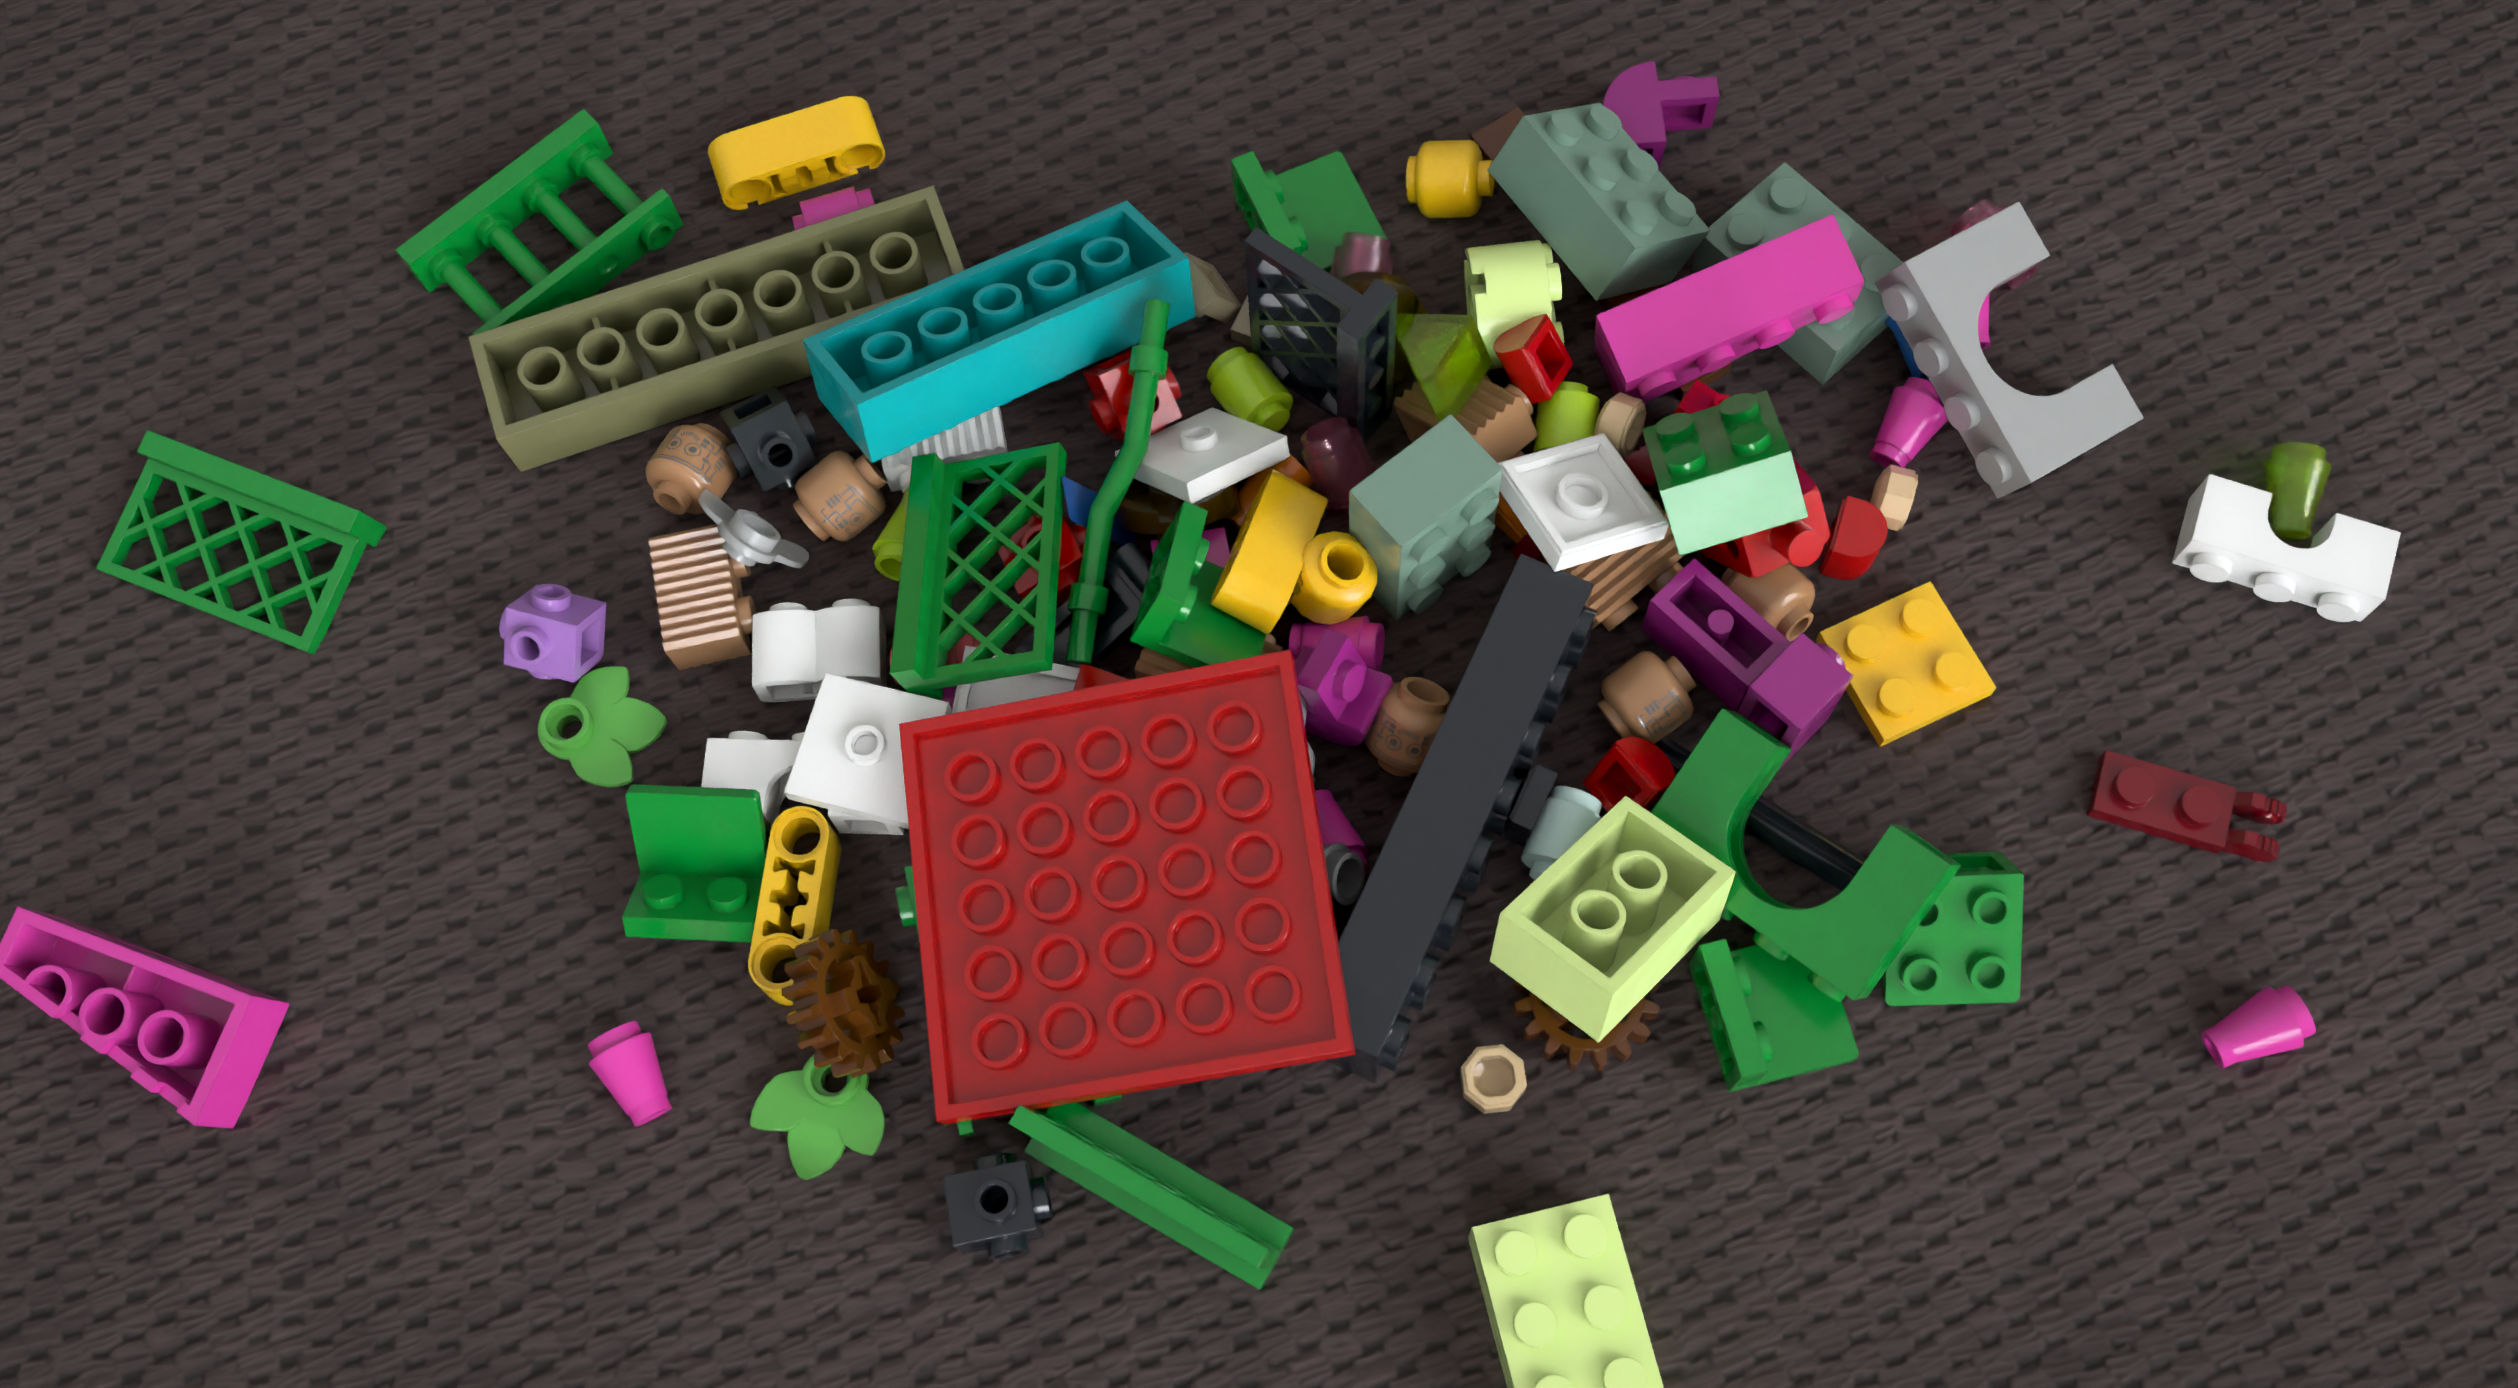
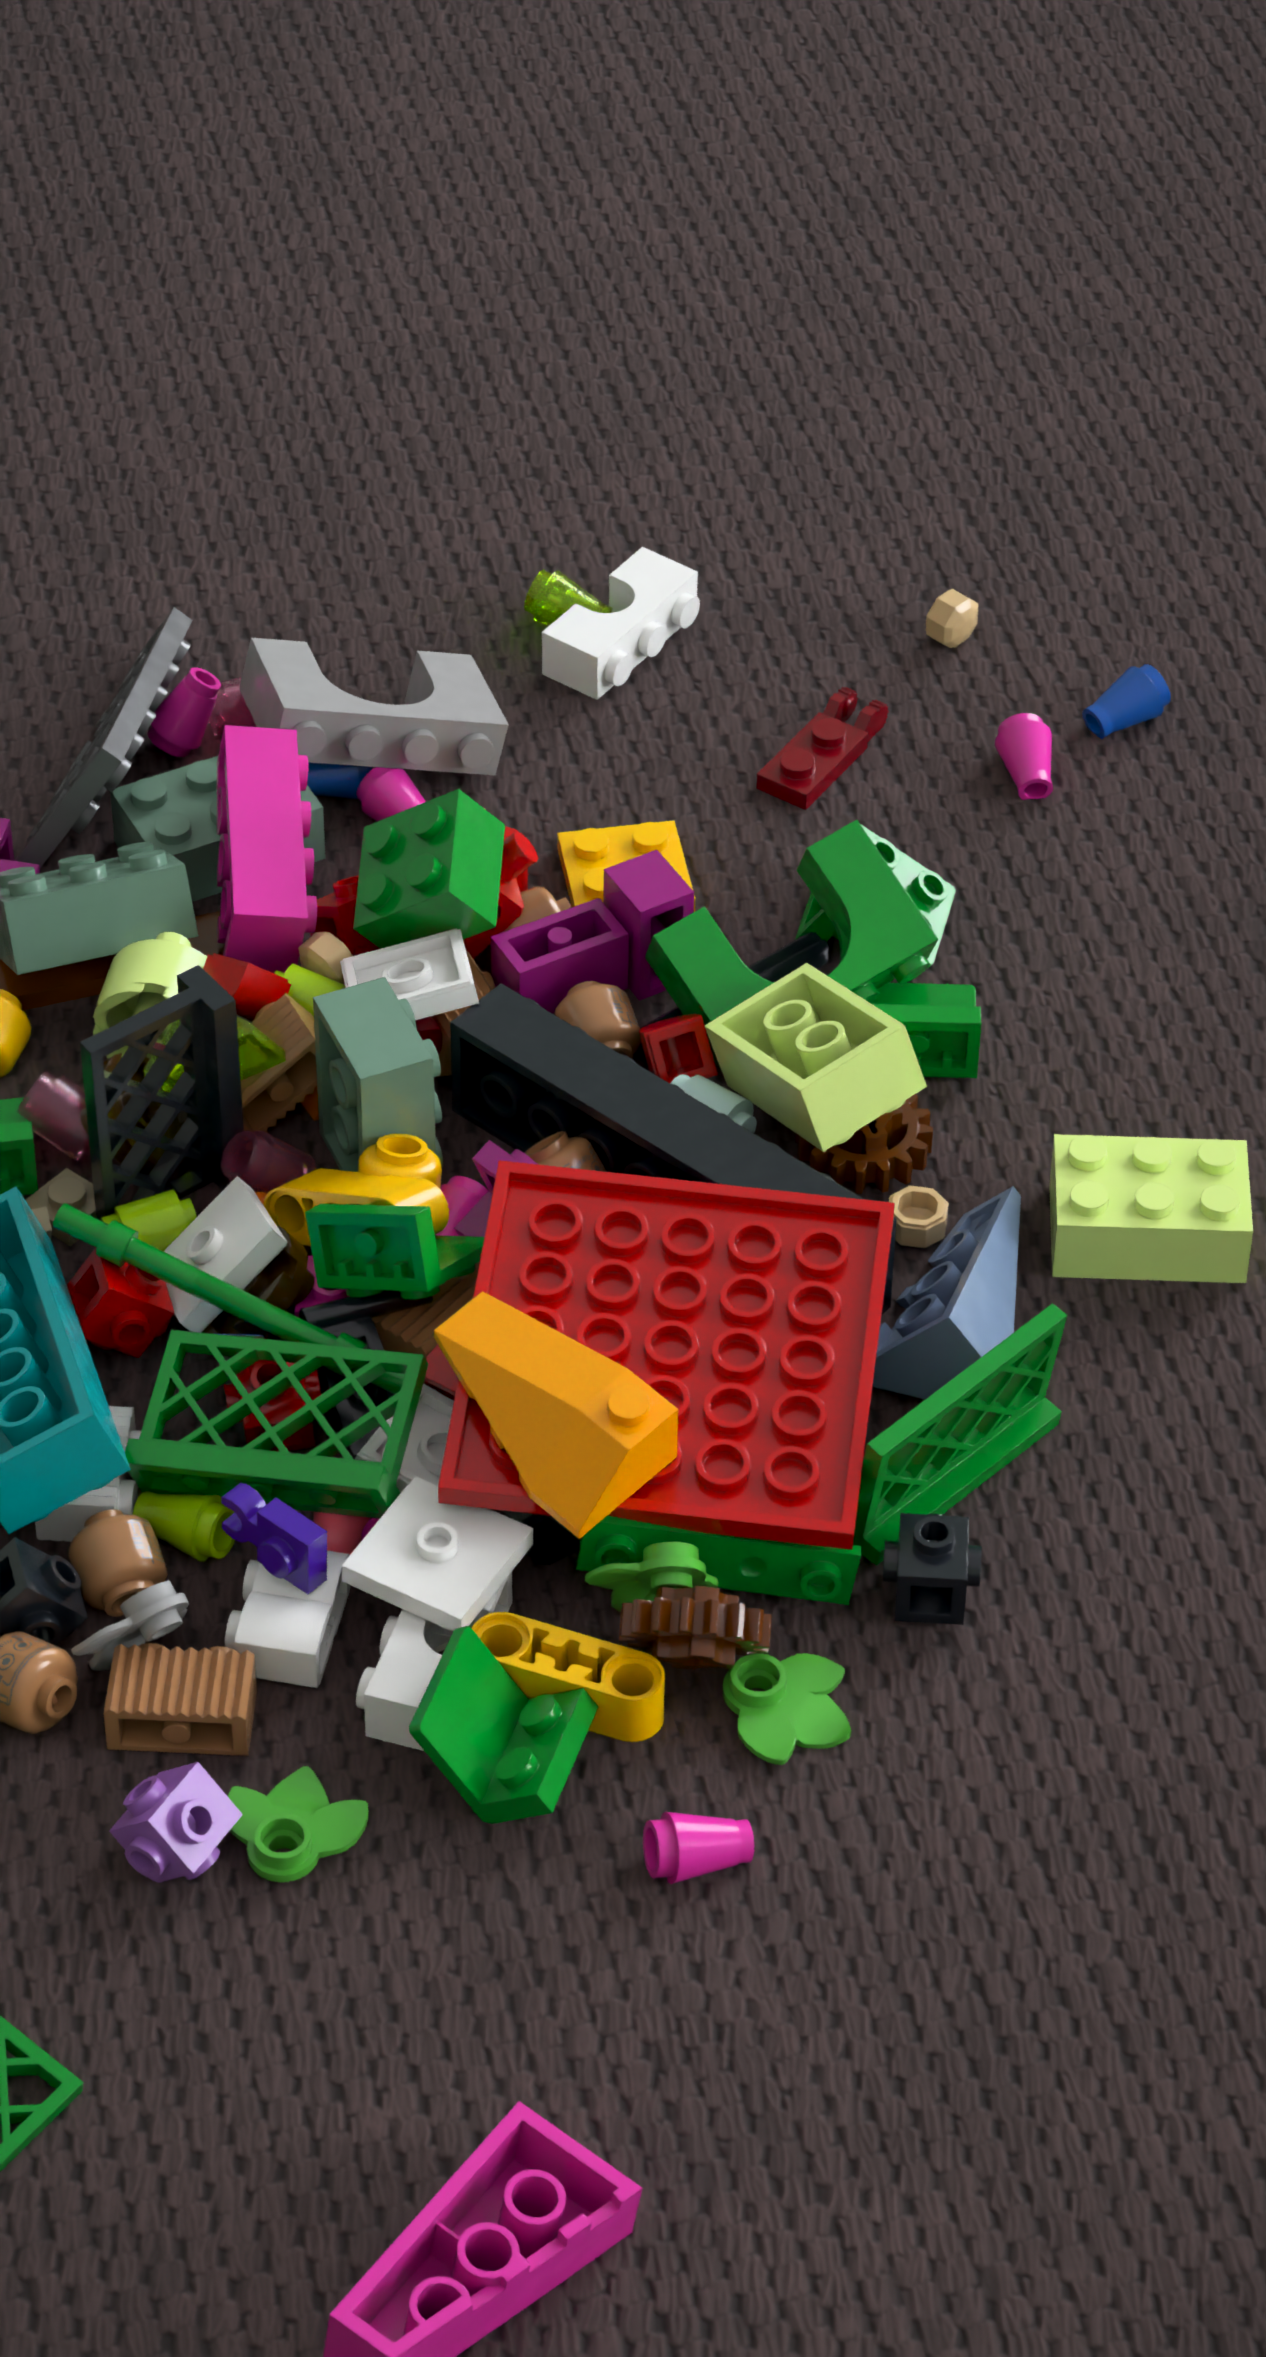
camera: 80 degrees left, 25 degrees down
(835, 618) = (285, 1539): none -> dark purple plate
(892, 952) = (662, 1566): none -> bright green plate
(985, 807) = (564, 1413): none -> light orange wedge
(1347, 1154) = (958, 1305): none -> sand blue wedge
(1885, 142) = (118, 737): none -> dark grey wing
(1945, 192) = (185, 713): none -> dark pink cone
(2406, 1121) = (1129, 701): none -> blue cone
(2461, 890) = (952, 618): none -> tan tile

